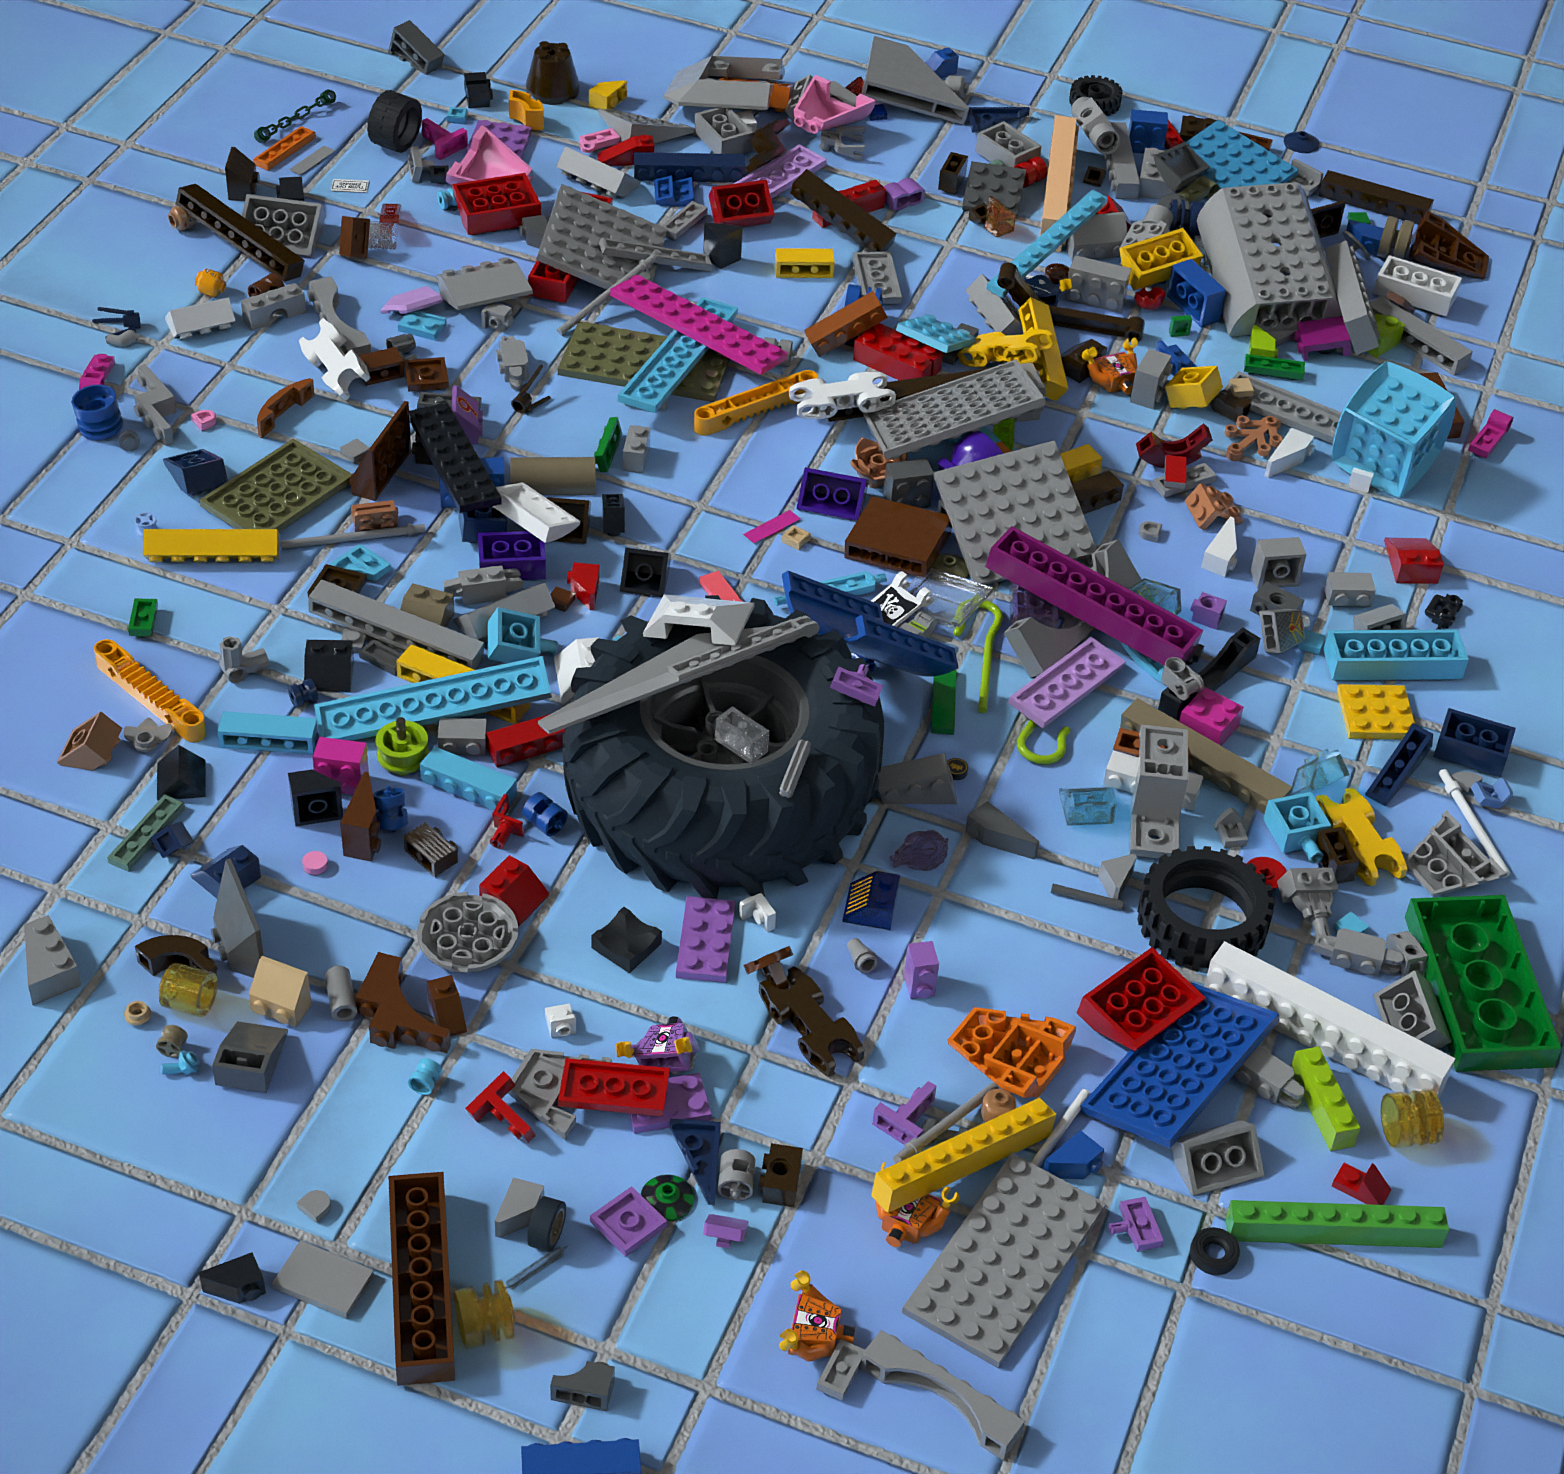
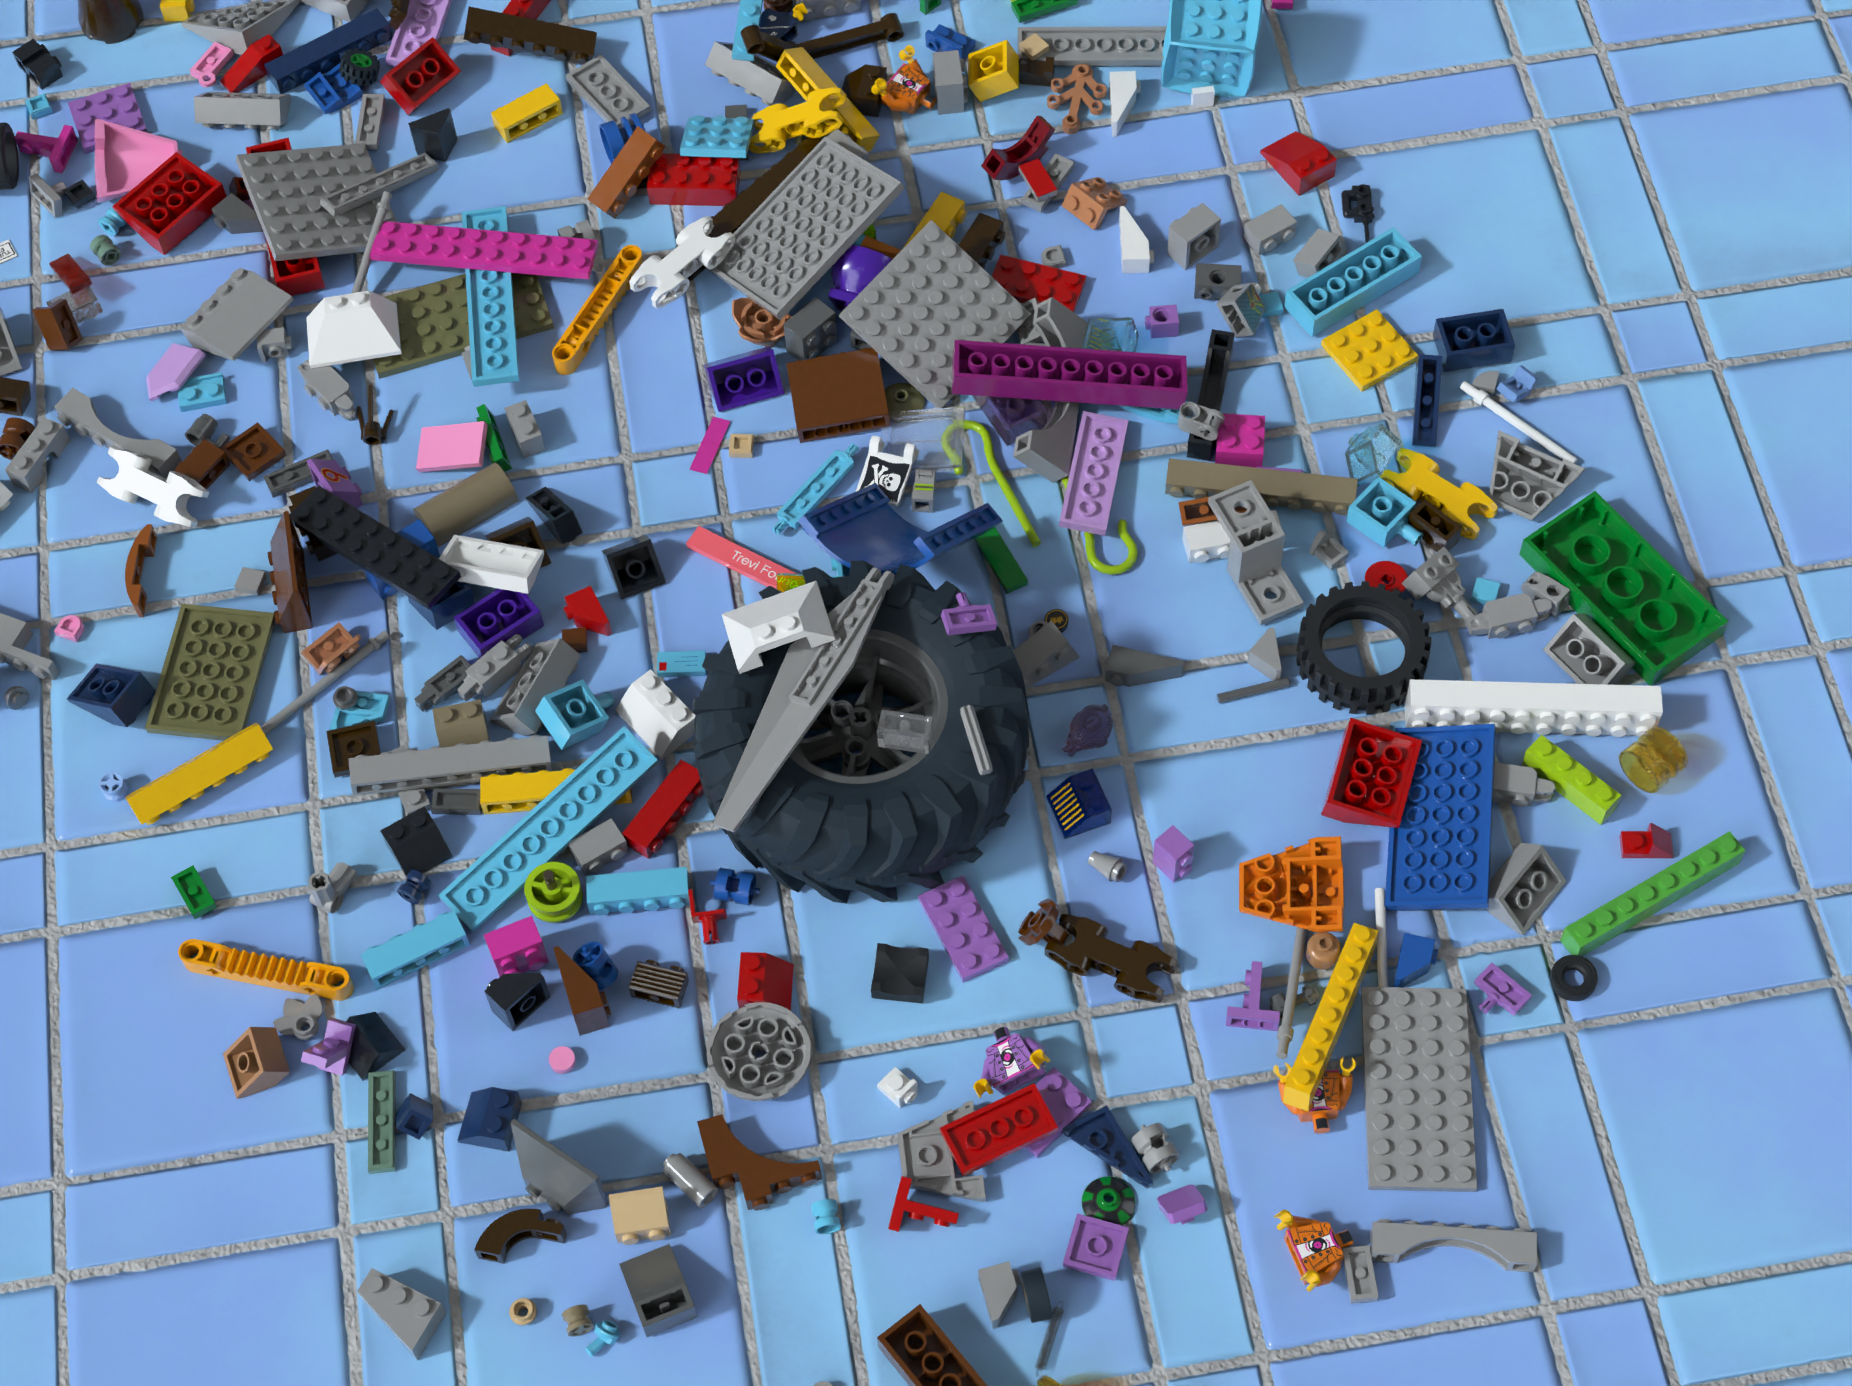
camera: 25 degrees left, 15 degrees up
(150, 761) = (334, 1051): none -> medium lavender bracket
(188, 989) = (555, 1263): clear yellow piece -> none
(356, 547) = (345, 698): none -> flat silver plate
(428, 212) = (105, 250): none -> sand green wheel
(435, 576) = (443, 684): none -> dark grey hinge
(446, 1004) = (793, 1136): reddish brown slope -> none
(526, 110) = (111, 65): light orange brick -> none
(561, 329) = (352, 329): none -> white slope
(572, 434) = (452, 446): none -> bright pink tile
(700, 182) = (359, 67): none -> black wheel
(760, 909) = (994, 872): white bracket -> none
(781, 1188) = (1190, 1109): dark brown brick -> none
(1088, 805) = (1195, 593): clear light blue slope -> none
(1141, 550) = (1033, 280): none -> red plate

